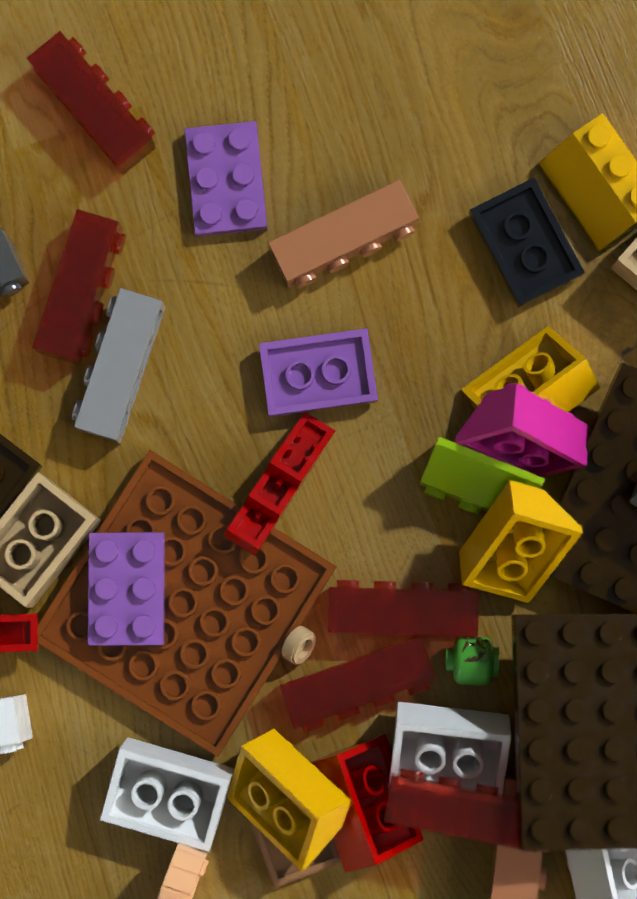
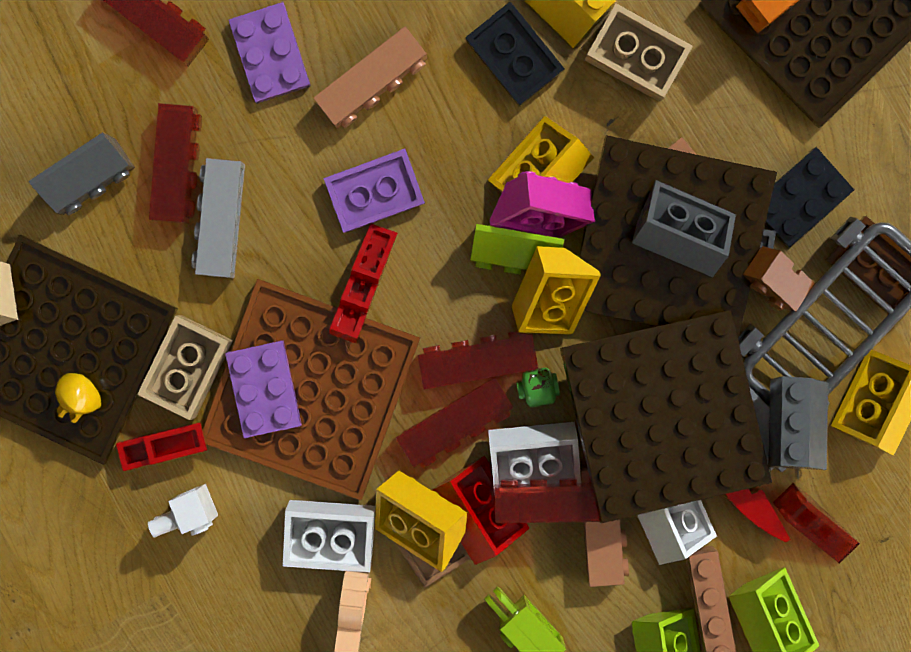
camera: 15 degrees left, 5 degrees up
(298, 645) = (404, 403): tan tile -> none

